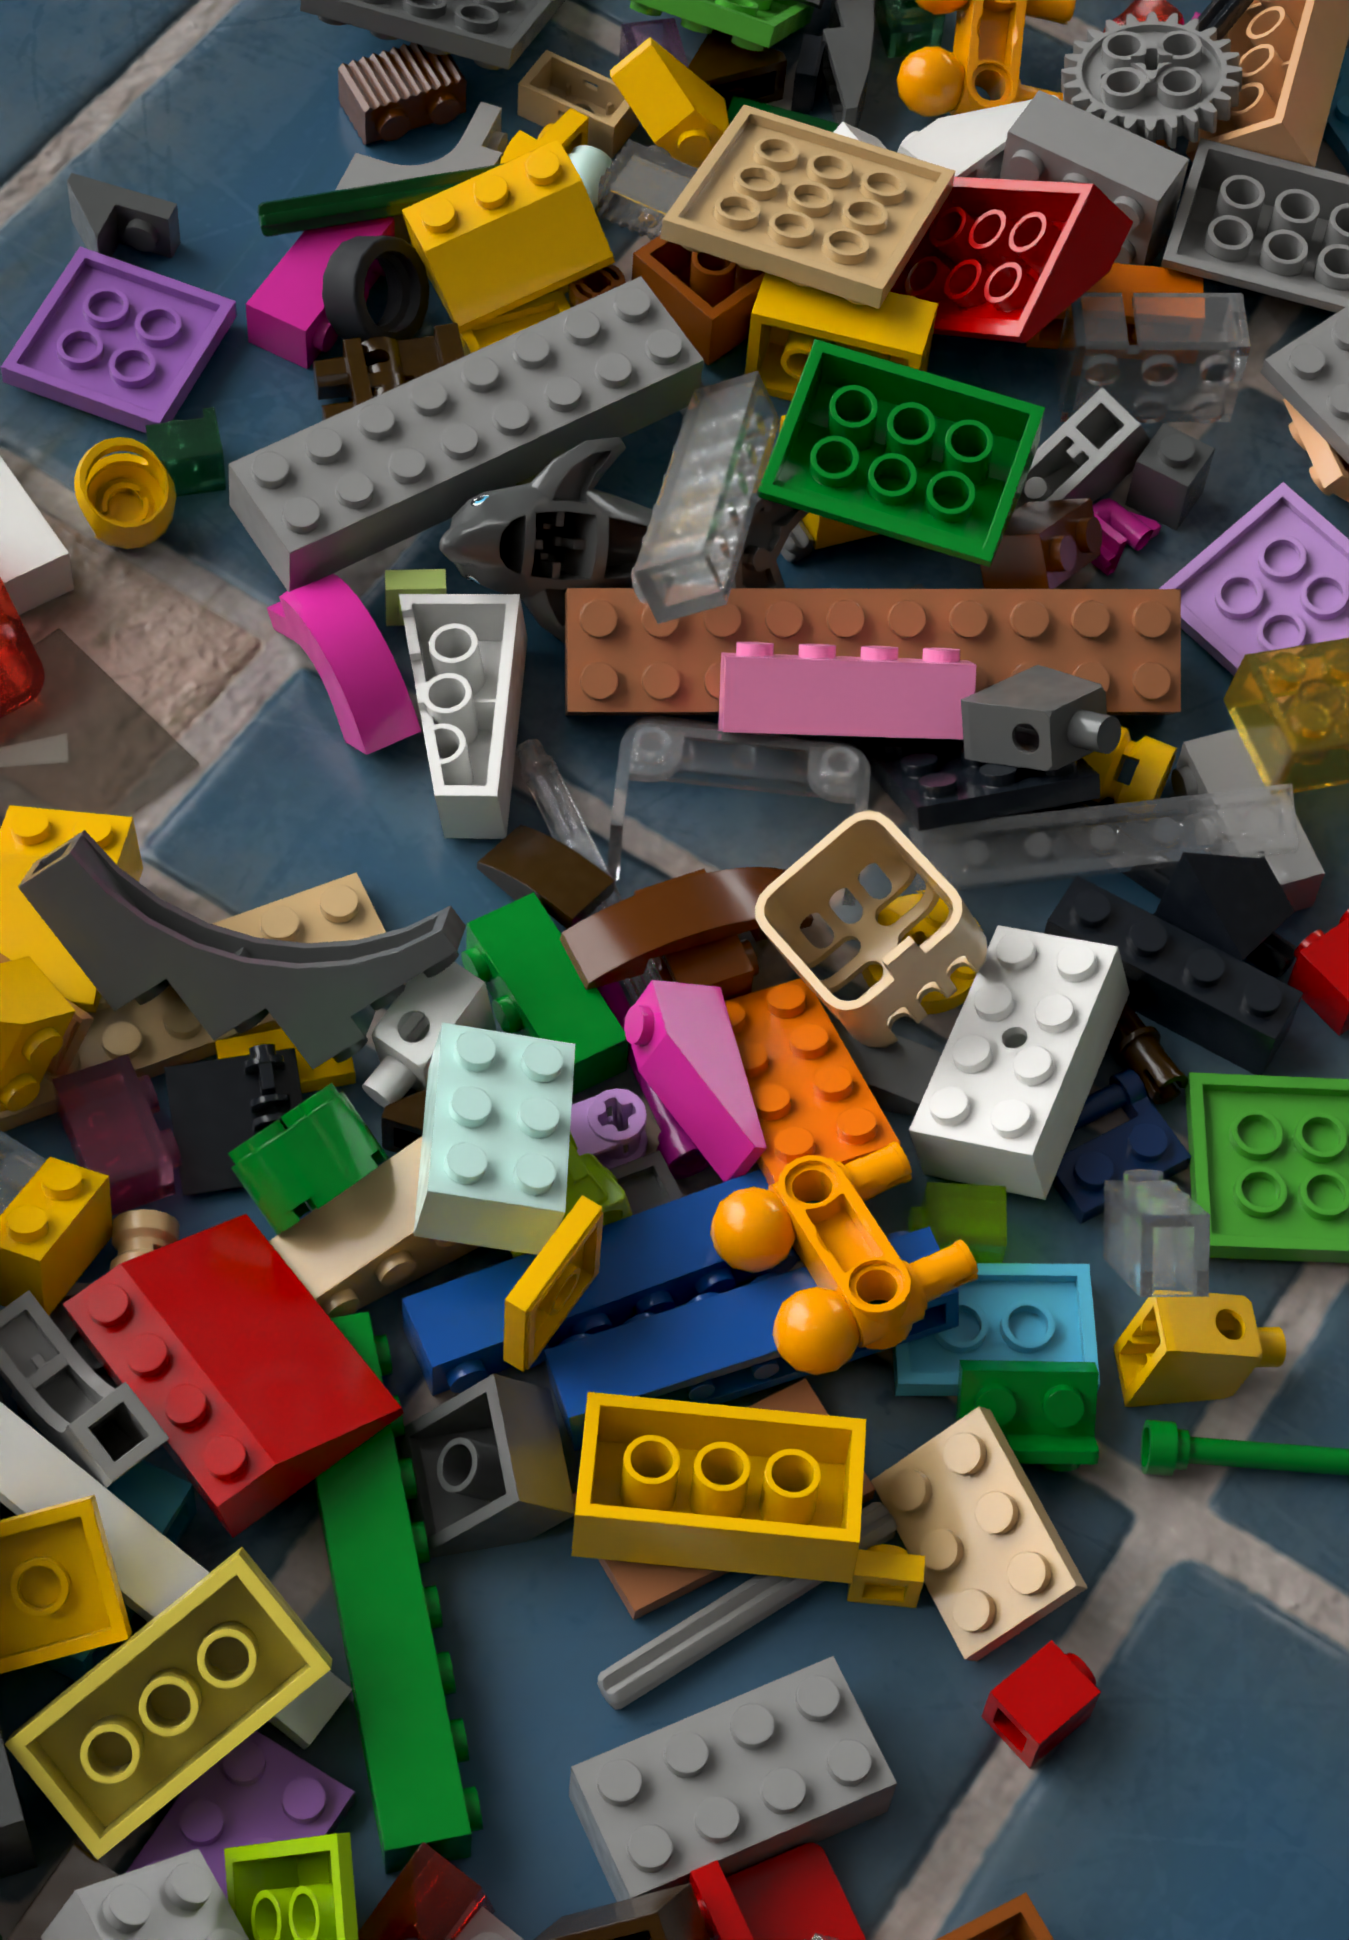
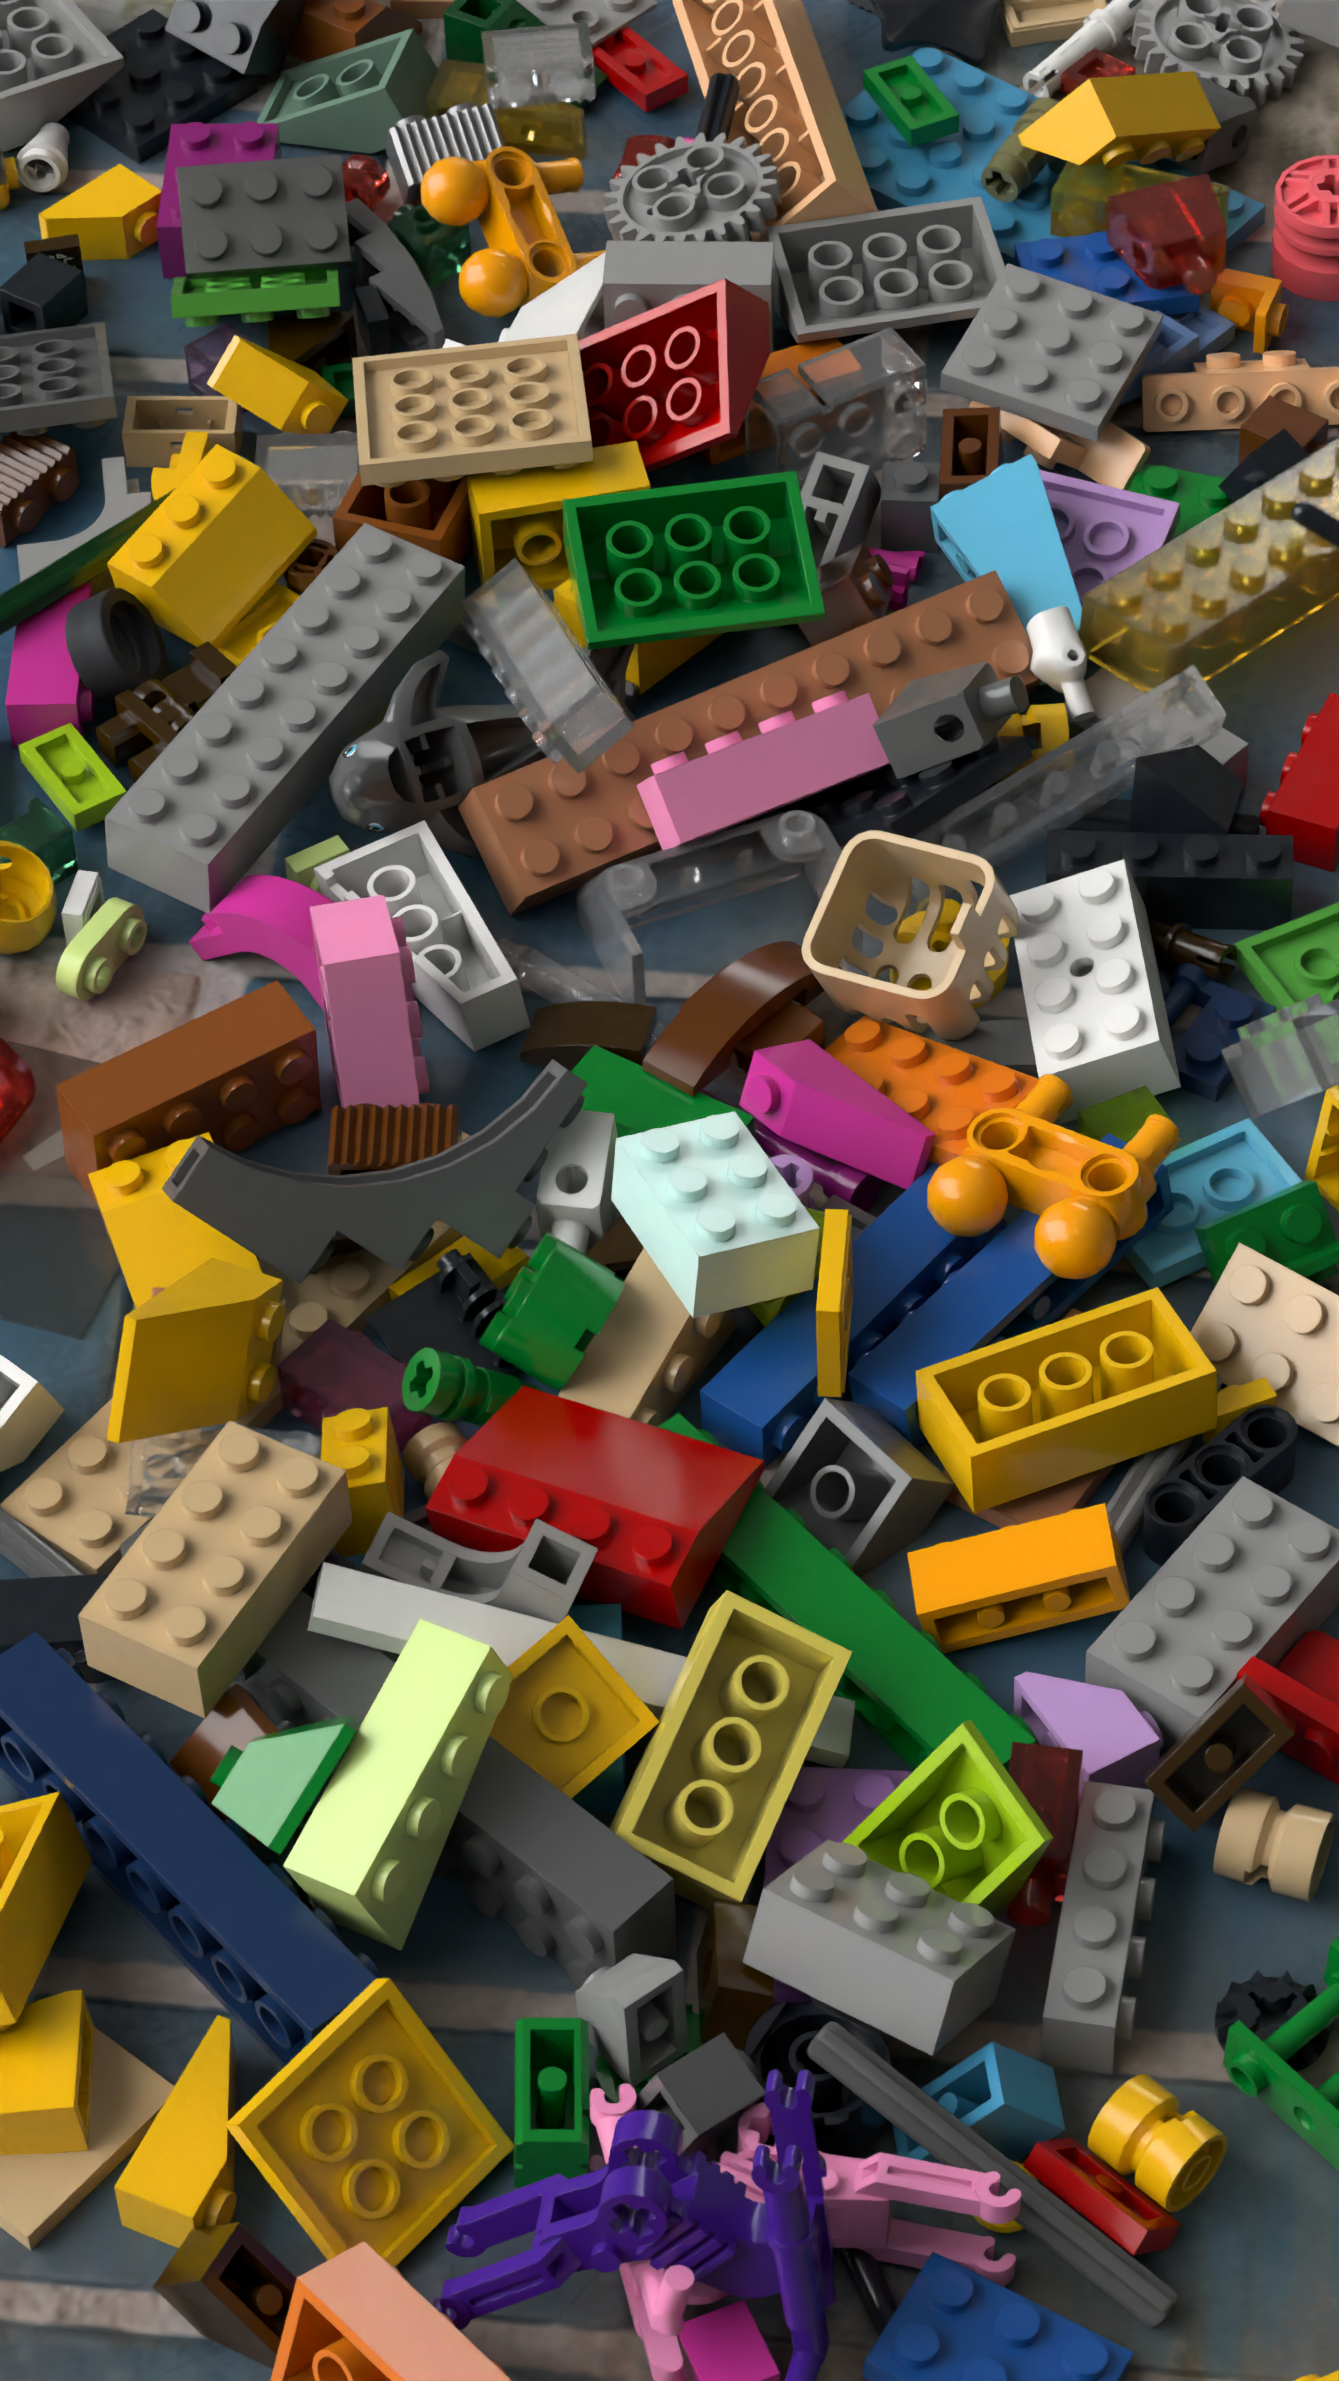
camera: 20 degrees left, 10 degrees down
(160, 763) = (220, 1074): none -> dark orange brick
(183, 579) = (100, 949): none -> yellowish green plate
(185, 1186) = (453, 1389): none -> green axle
(191, 537) = (82, 902): none -> white tile
(270, 394) = (72, 775): none -> lime plate
(281, 902) = (388, 1137): none -> reddish brown brick
(339, 766) = (369, 1003): none -> bright pink brick
(537, 1849) = (1100, 1720): none -> lavender slope
(567, 1648) = (1019, 1579): none -> light orange brick
(842, 1617) = (1253, 1446): none -> black beam
(1193, 706) = (1061, 658): none -> white piece
(1225, 564) = (1010, 529): none -> medium azure slope
(1244, 464) = (969, 446): none -> reddish brown brick

